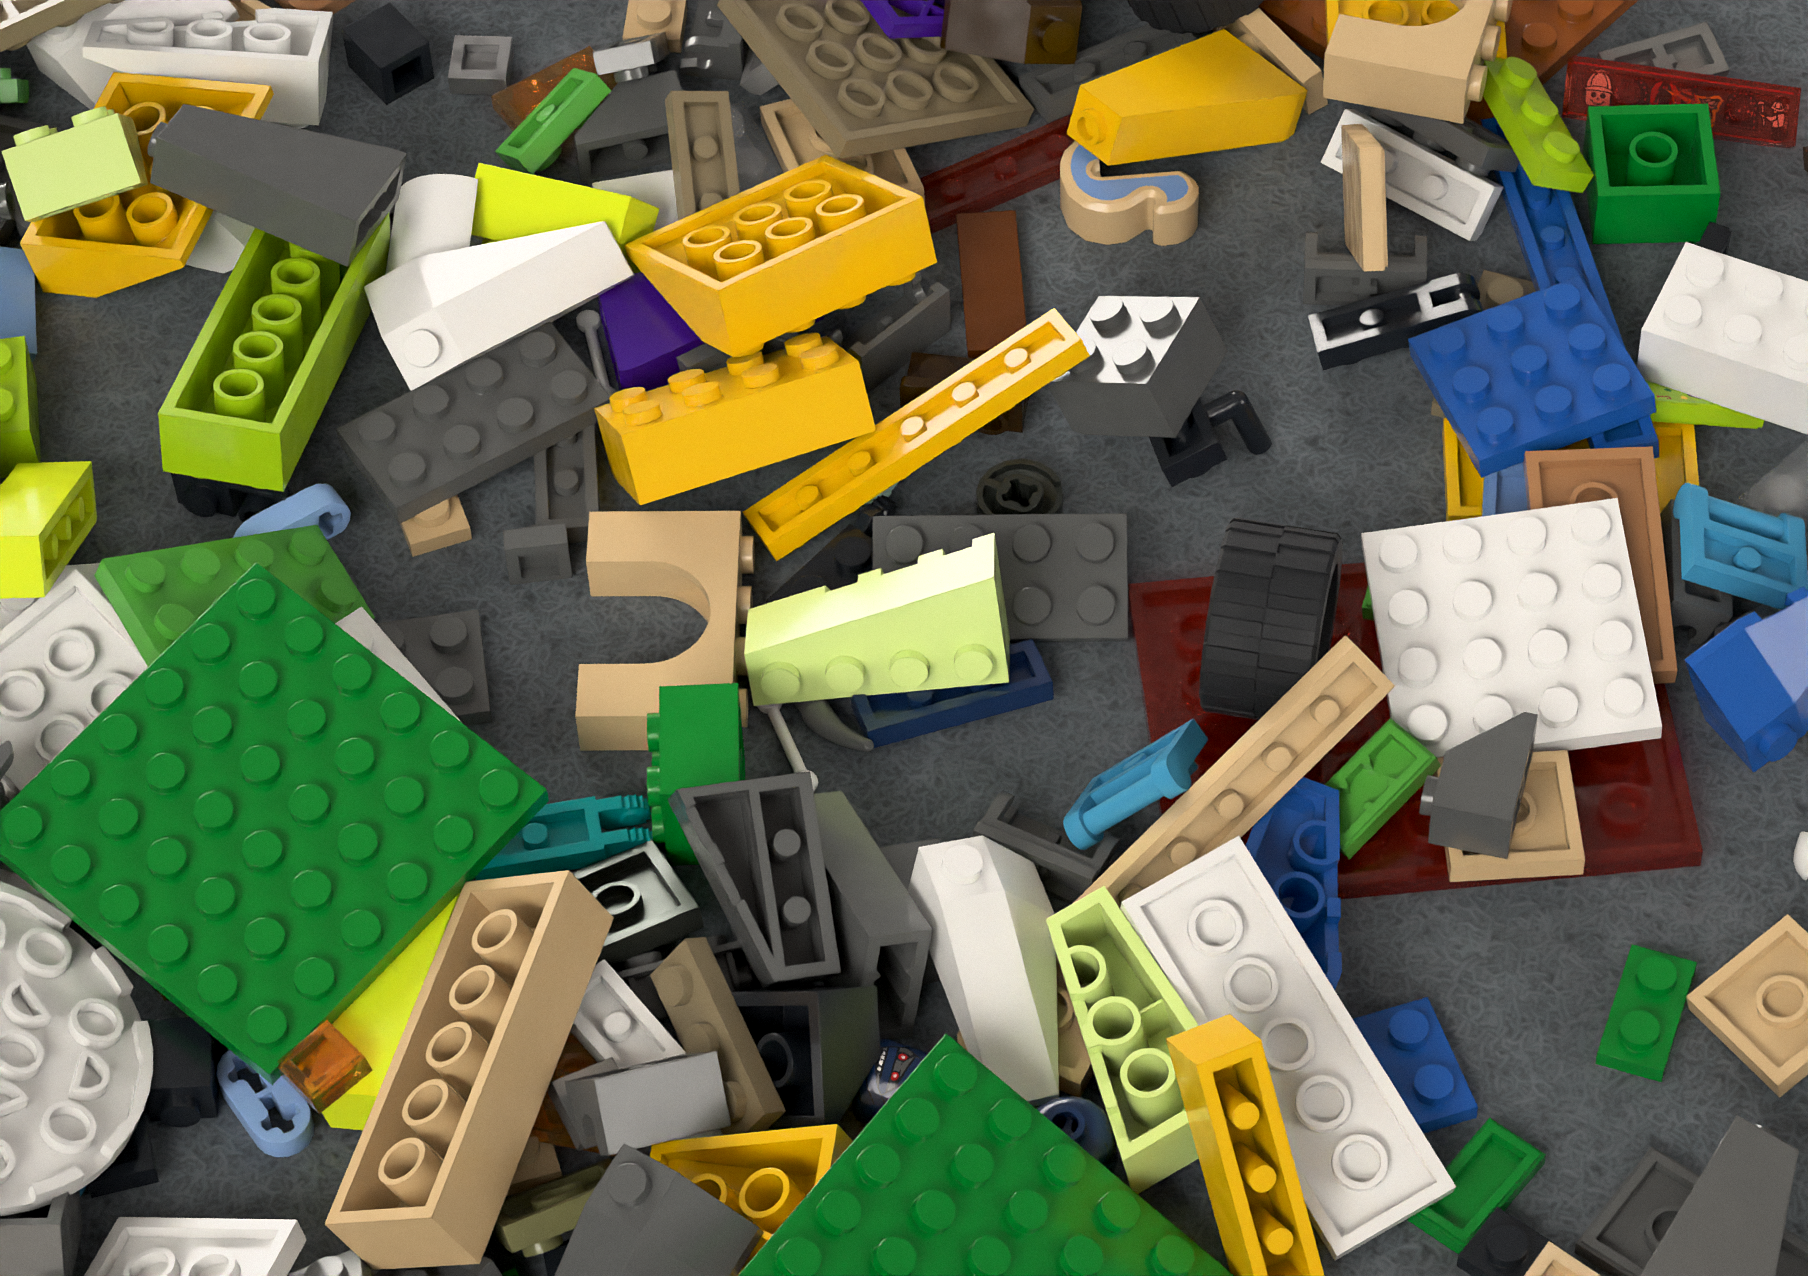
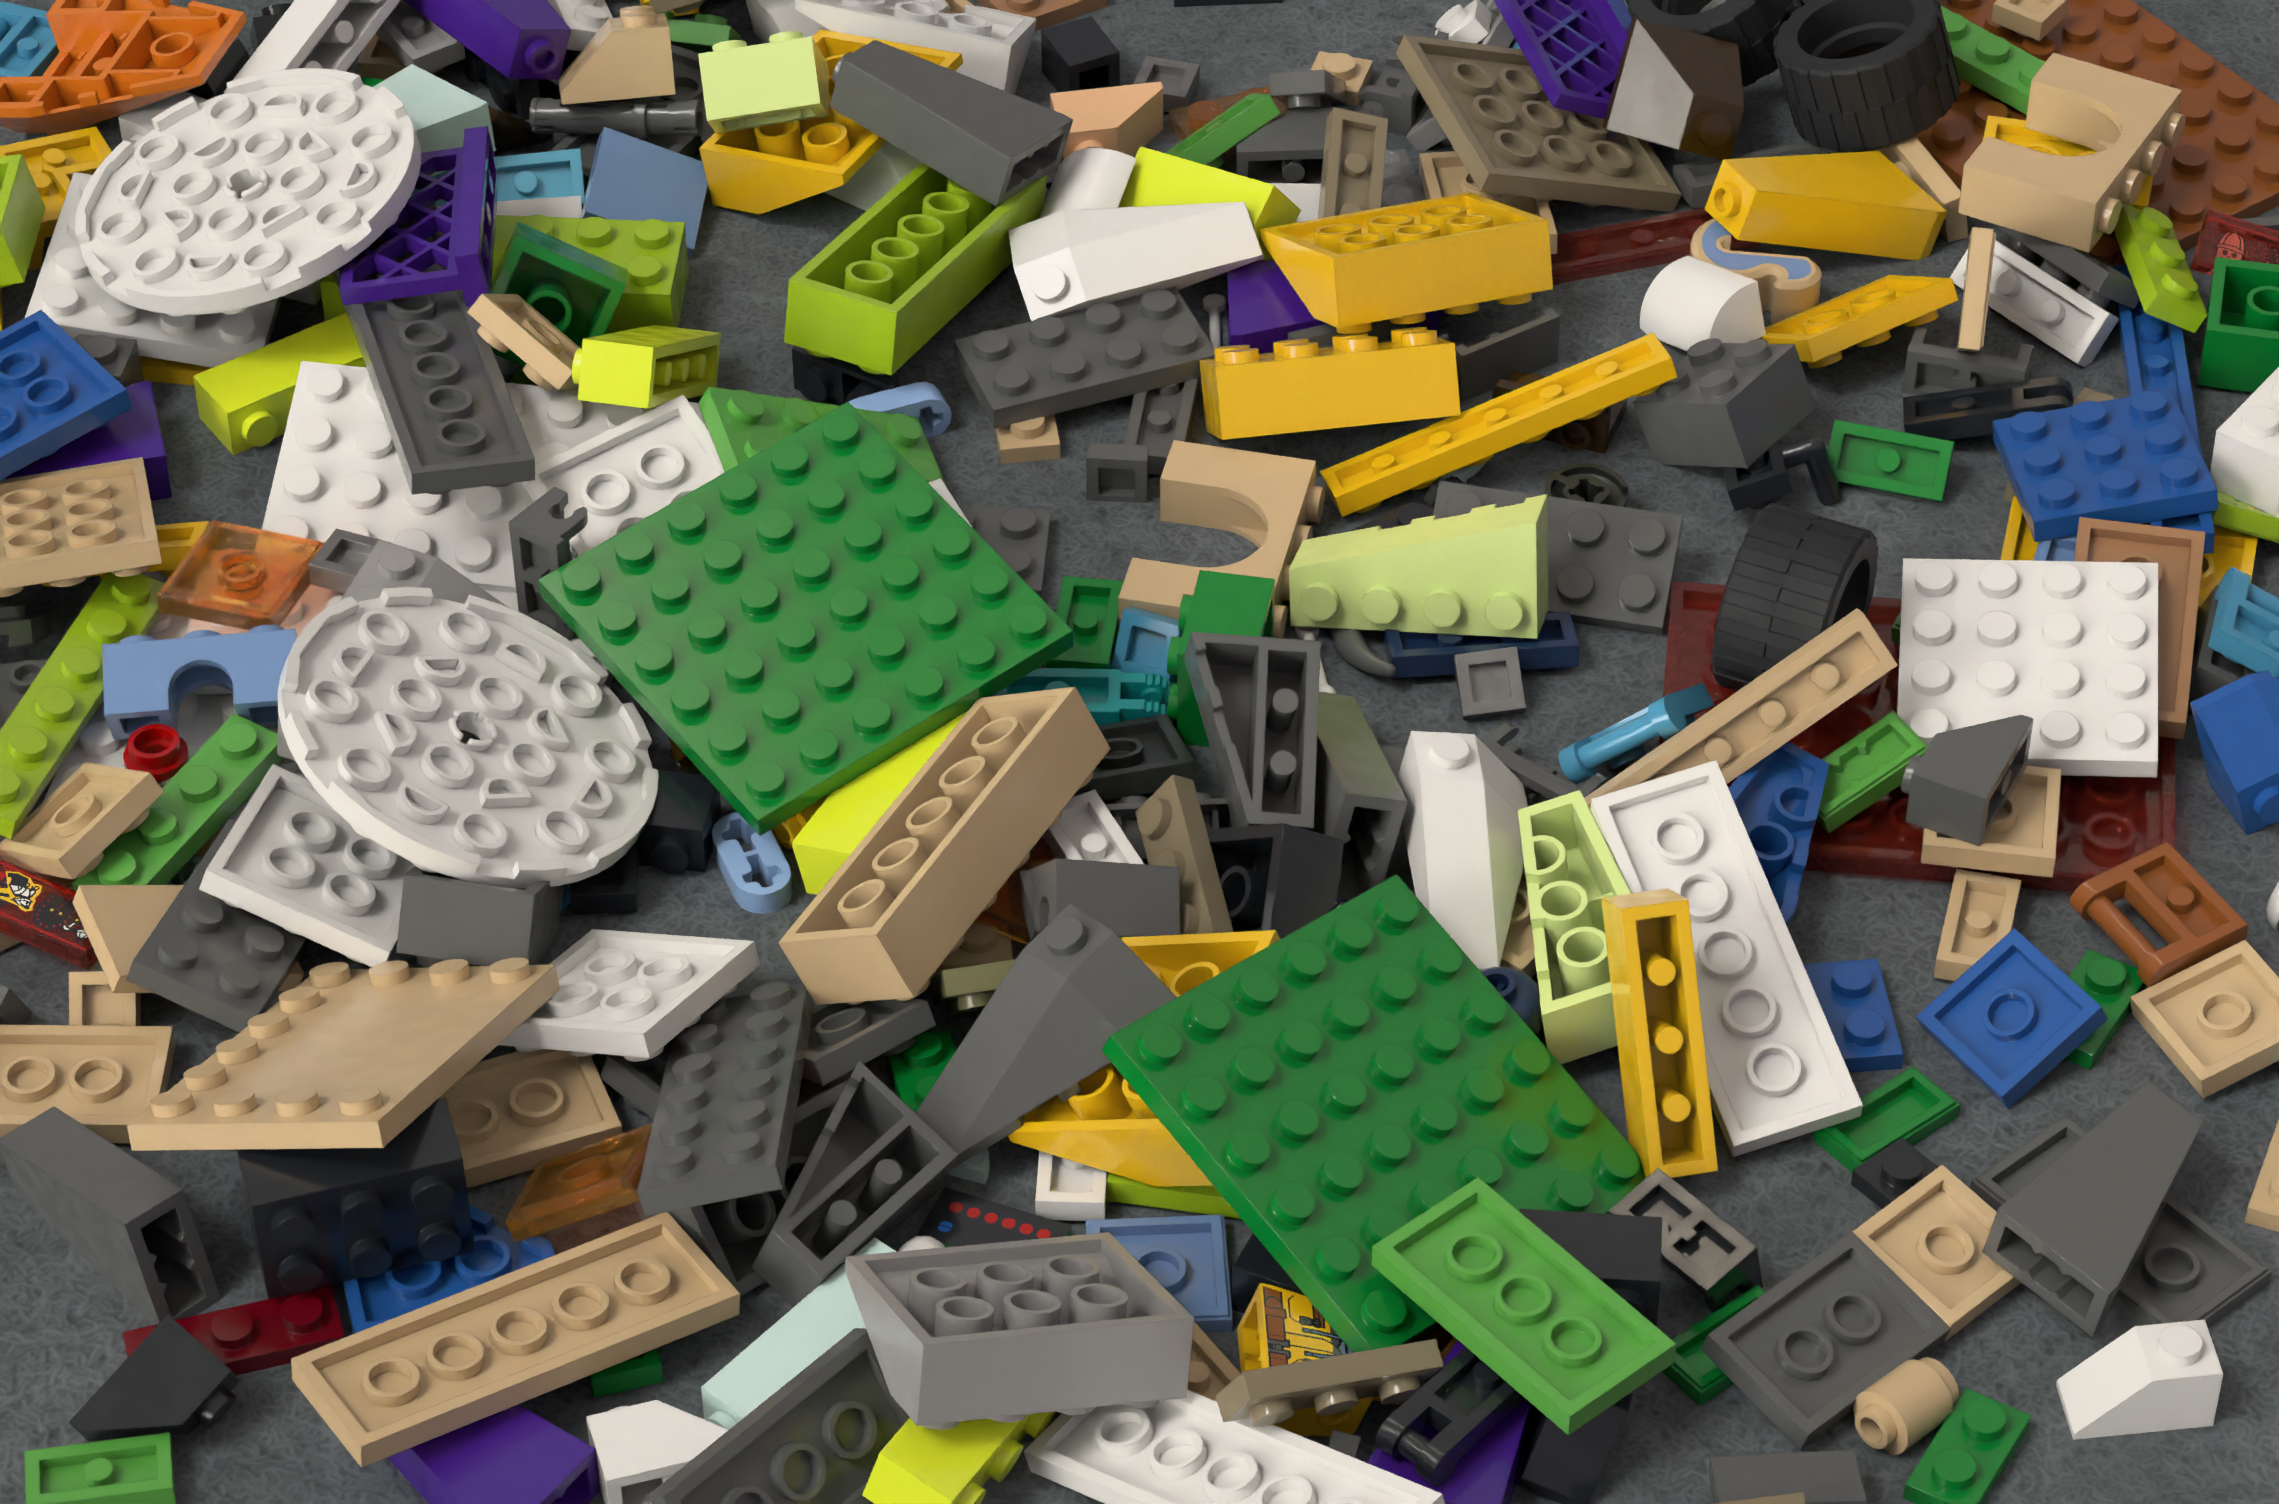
camera: 10 degrees right, 10 degrees down
(323, 1066) = (810, 823): clear orange tile -> none
(432, 124) = (1111, 116): none -> light nougat slope
(548, 740) = (1092, 613): none -> green plate
(615, 760) = (1144, 643): none -> dark azure plate
(970, 740) = (1489, 683): none -> flat silver plate
(990, 278) = (1606, 312): reddish brown tile -> none
(1086, 249) = (1701, 302): none -> white brick
(1240, 235) = (1862, 316): none -> yellow plate
(1312, 396) = (1890, 460): none -> green plate
(1518, 942) = (1976, 919): none -> tan plate
(1577, 1048) = (2011, 1018): none -> blue plate
(1710, 884) = (2172, 901): none -> dark orange plate

